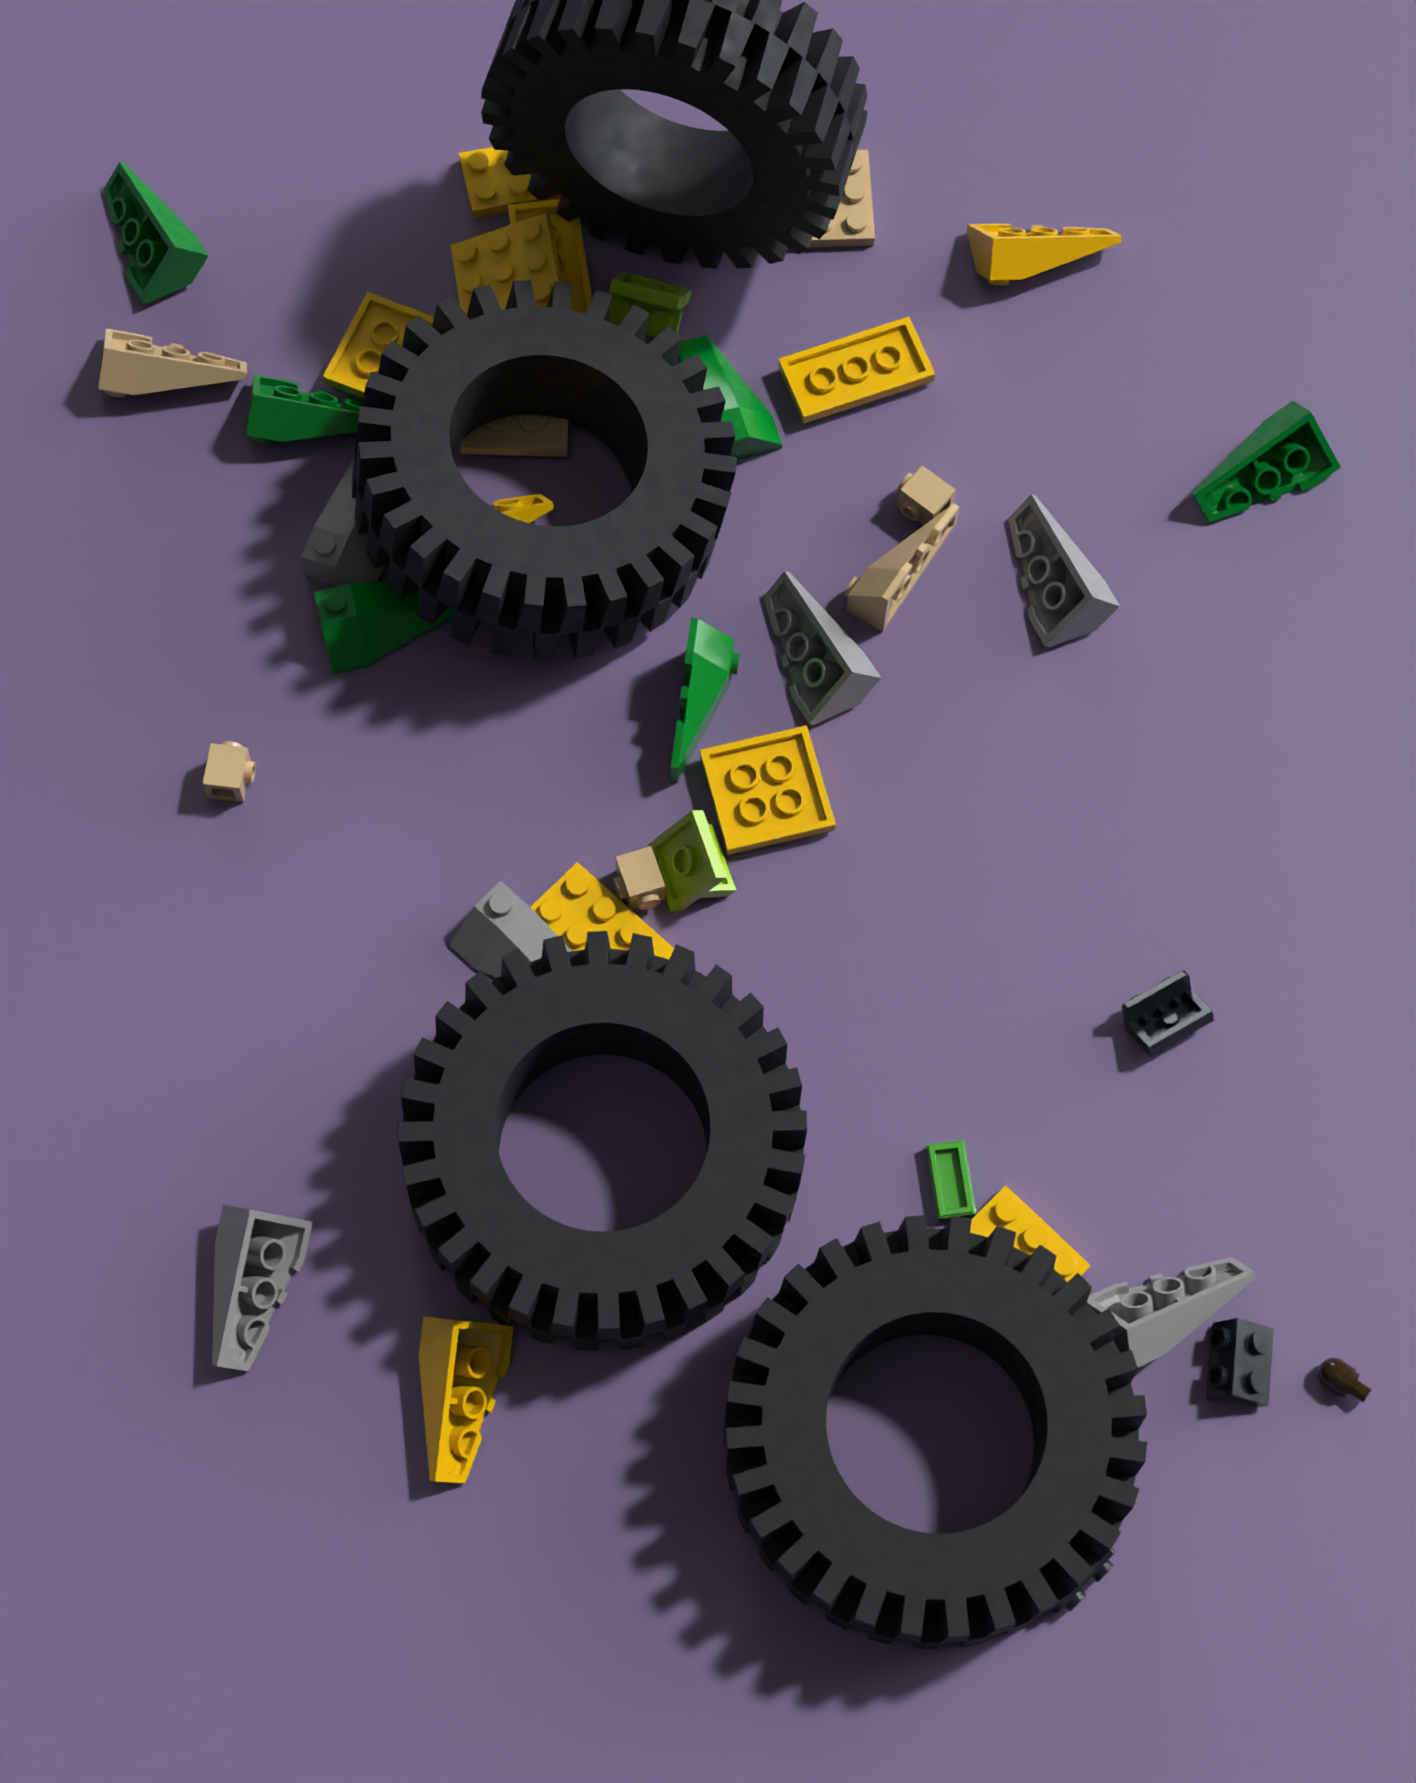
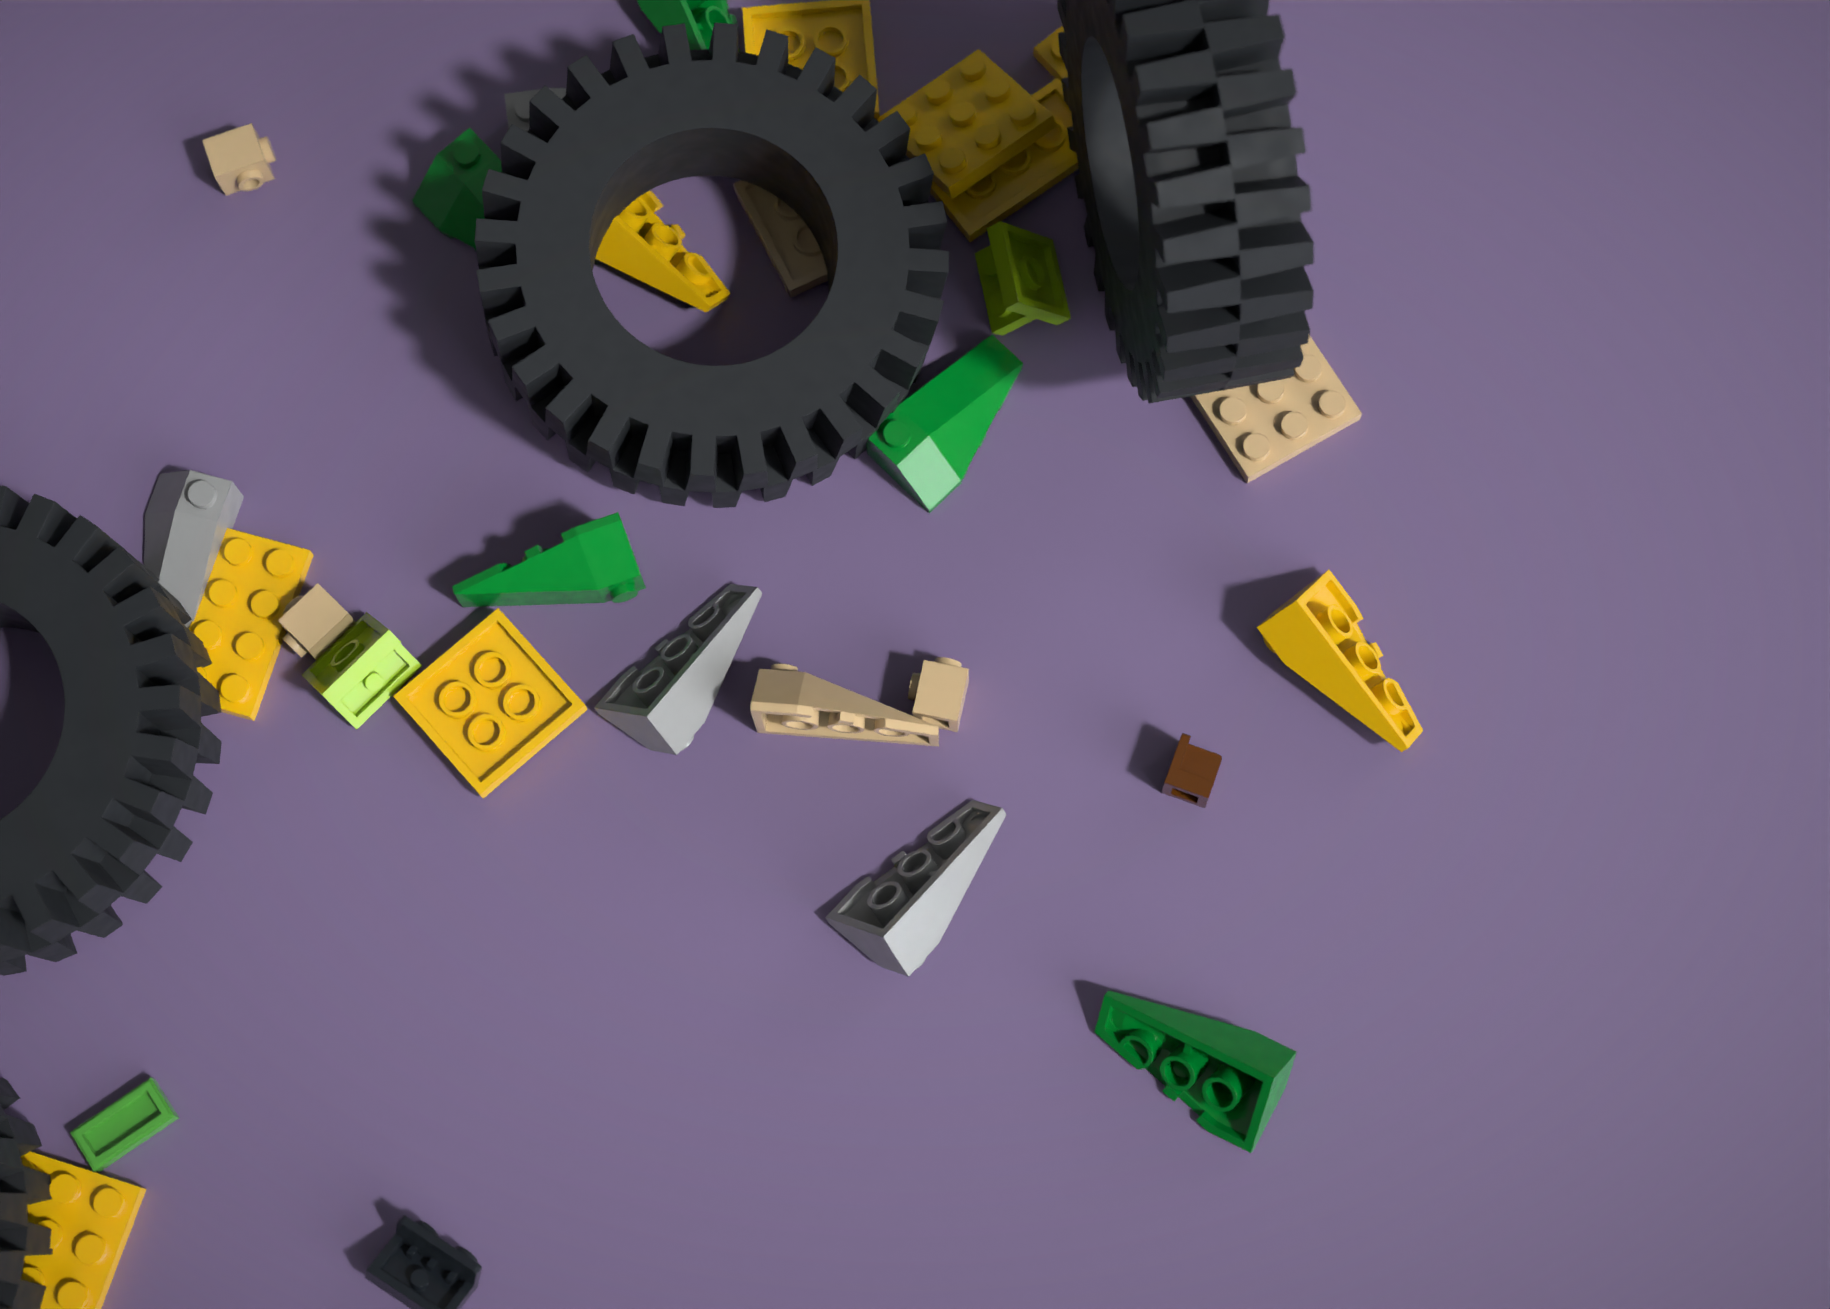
camera: 70 degrees right, 5 degrees up
(856, 369) = (1065, 541): yellow plate -> none
(1063, 376) = (1191, 773): none -> reddish brown panel

